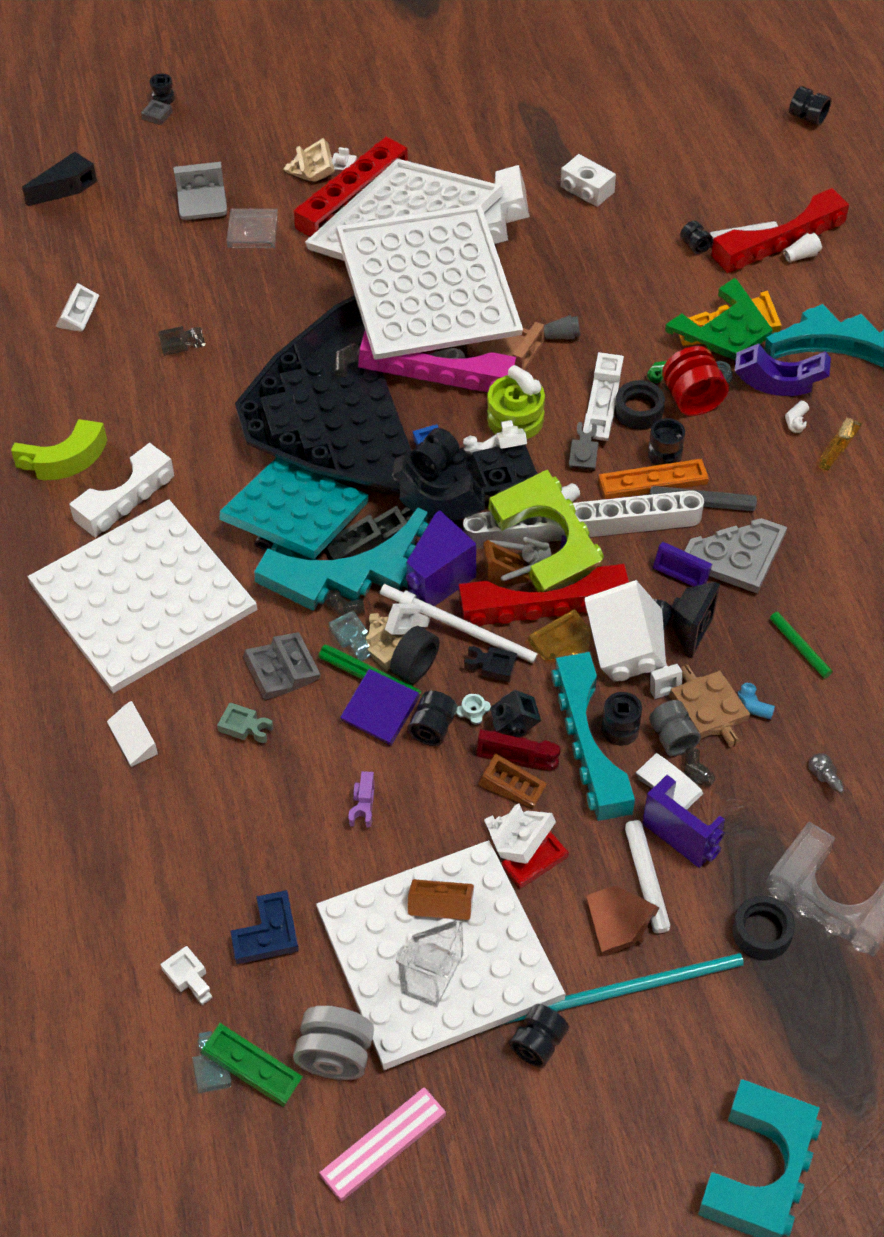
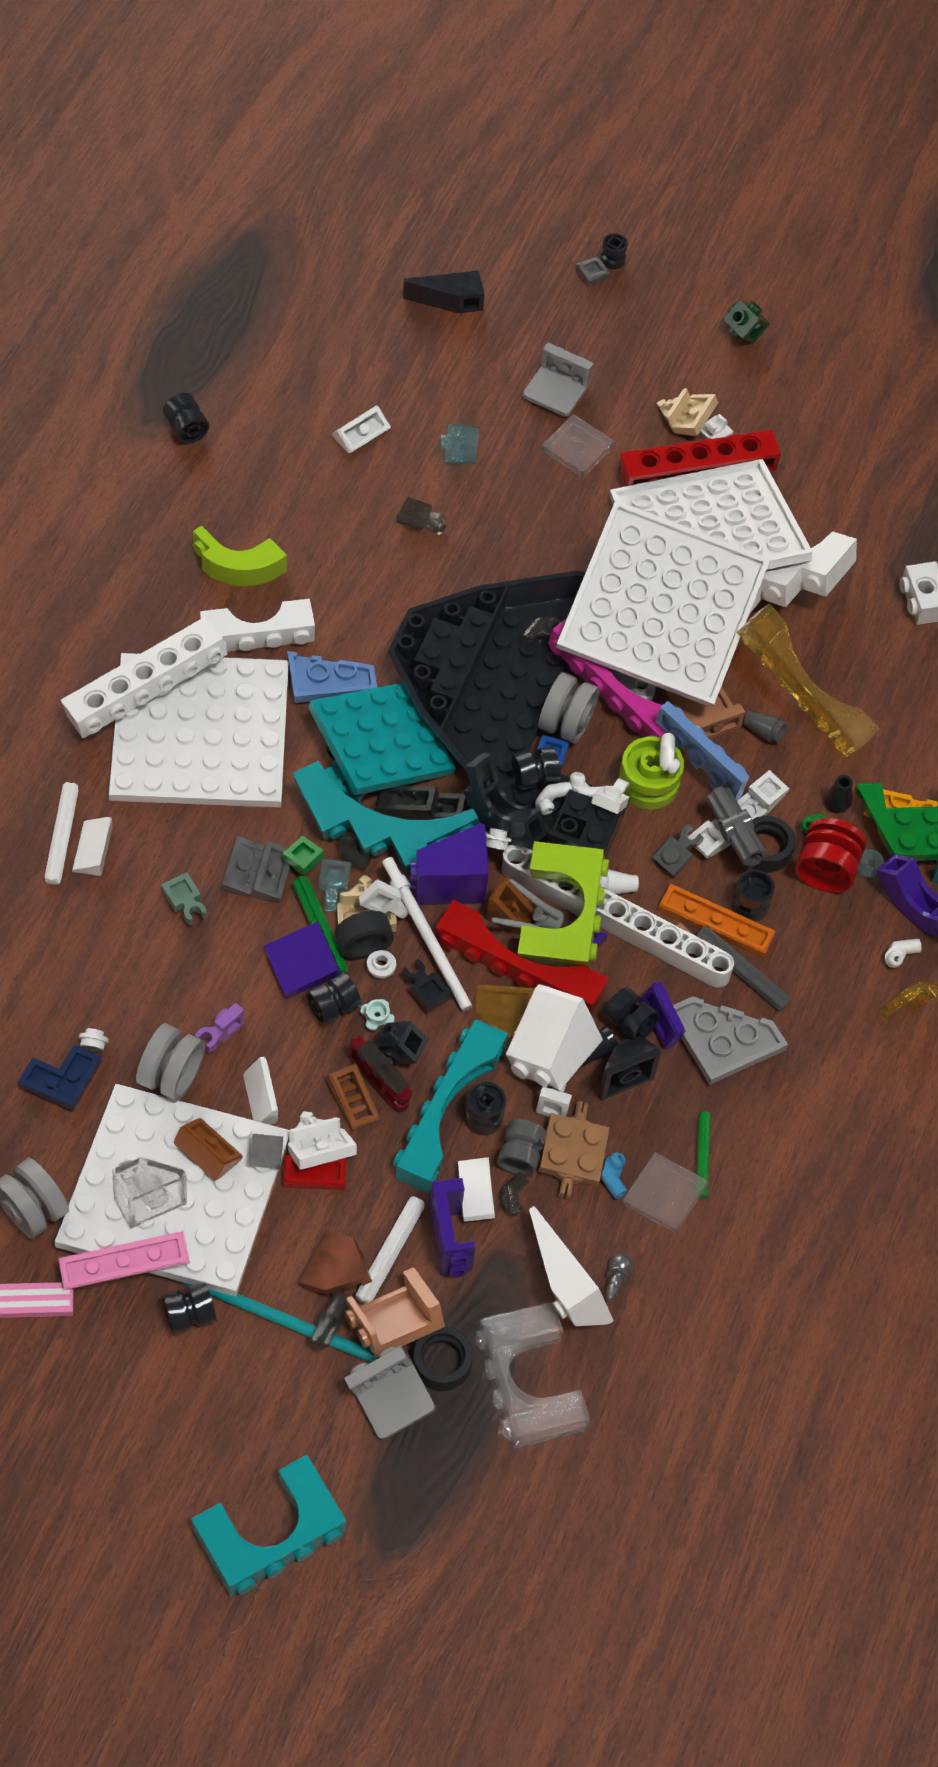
camera: 30 degrees right, 5 degrees up
(67, 579) = (162, 664): none -> white brick
(97, 742) = (61, 833): none -> white axle
(166, 272) = (460, 443): none -> clear light blue brick
(206, 498) = (319, 678): none -> medium blue wing
(267, 882) = (93, 1040): none -> white plate
(300, 81) = (746, 321): none -> dark green brick
(312, 629) = (303, 855): none -> green tile
(351, 852) = (170, 1061): none -> light grey wheel
(423, 398) = (568, 707): none -> light grey wheel
(439, 827) = (261, 1092): none -> white slope
(442, 676) = (379, 971): none -> white plate
(456, 517) = (497, 839): none -> white plate
(456, 1036) = (124, 1260): none -> bright pink tile
(460, 463) = (549, 793): none -> white arm
(489, 867) = (266, 1151): none -> flat silver tile
(523, 739) = (382, 1067): none -> clear smoke axle
(529, 260) = (770, 640): none -> clear yellow arch
(556, 368) = (703, 751): none -> medium blue wing
(614, 401) = (736, 826): none -> dark grey piece
(656, 962) = (330, 1321): none -> clear smoke axle
(658, 340) = (840, 794): none -> black cone
(662, 579) = (629, 1012): none -> black wheel
(704, 918) = (397, 1316): none -> nougat panel
(755, 982) = (390, 1392): none -> light grey bracket
(803, 688) = (665, 1192): none -> clear tile
(813, 798) = (571, 1285): none -> white wedge

